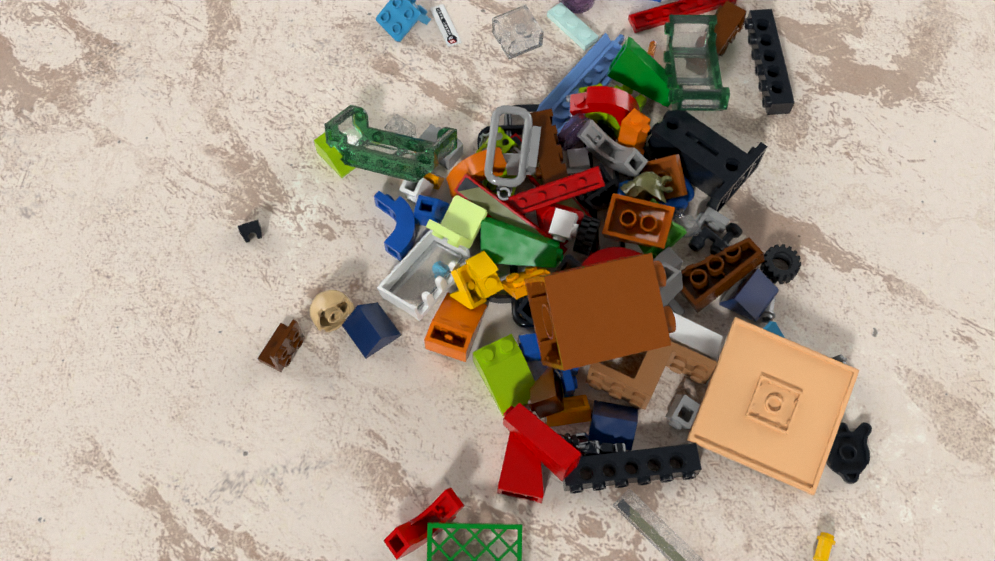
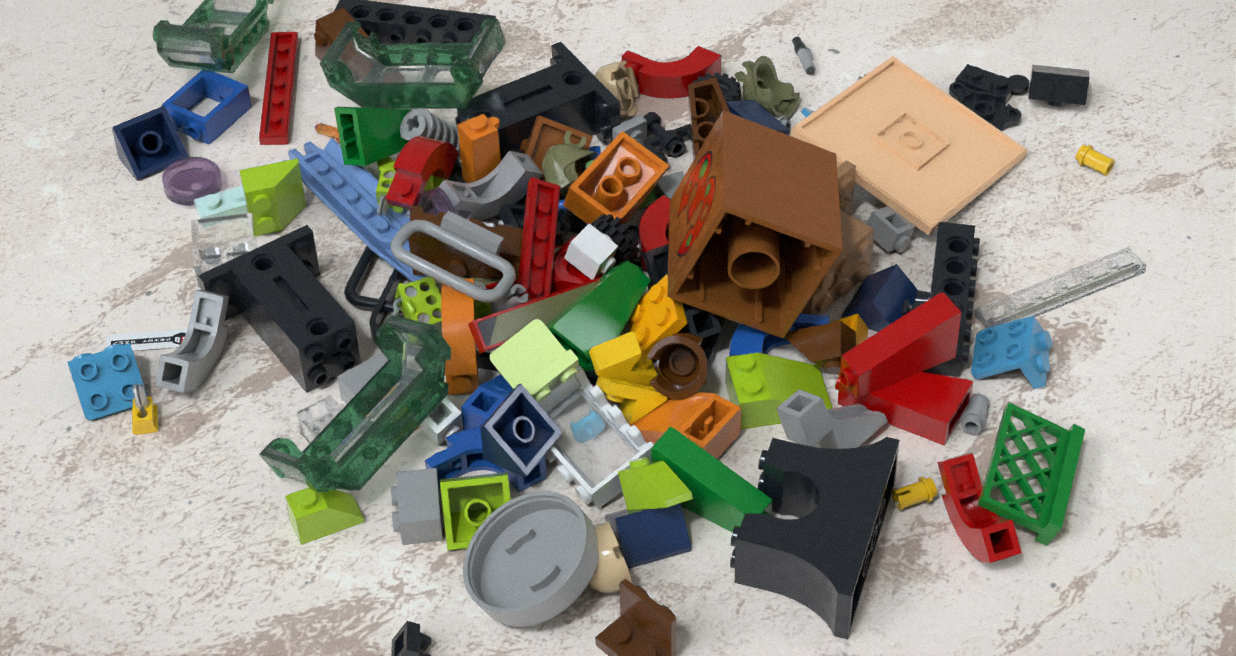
camera: 70 degrees left, 20 degrees down
(314, 269) = (531, 559): none -> light grey piece
(352, 200) = (418, 506): none -> light grey brick
(358, 230) = (469, 503): none -> lime slope
(370, 441) = (831, 545): none -> black piece
(384, 43) = (143, 412): none -> yellow piece
(384, 319) = (651, 485): none -> lime slope
(403, 231) = (518, 433): none -> dark blue slope
(403, 354) = (716, 489): none -> green slope
(431, 50) = (201, 347): none -> light grey arch
(442, 481) = (915, 493): none -> yellow pin
(475, 418) = (809, 422): none -> light grey arch
(477, 80) = (289, 307): none -> black brick
(497, 311) = (680, 365): none -> reddish brown helmet
(525, 507) = (974, 418): none -> light grey pin
(567, 37) = (273, 195): none -> lime slope
(591, 523) = (1011, 347): none -> dark azure bracket
(655, 100) = (423, 123): none -> light grey piece
(753, 198) = (621, 84): none -> tan cylinder
(786, 232) = (671, 79): none -> red arch
(795, 296) = (765, 88): none -> olive helmet
(856, 312) = (804, 55): none -> piece
(882, 453) = (983, 80): none -> black hinge
(895, 504) = (1058, 85): none -> black brick

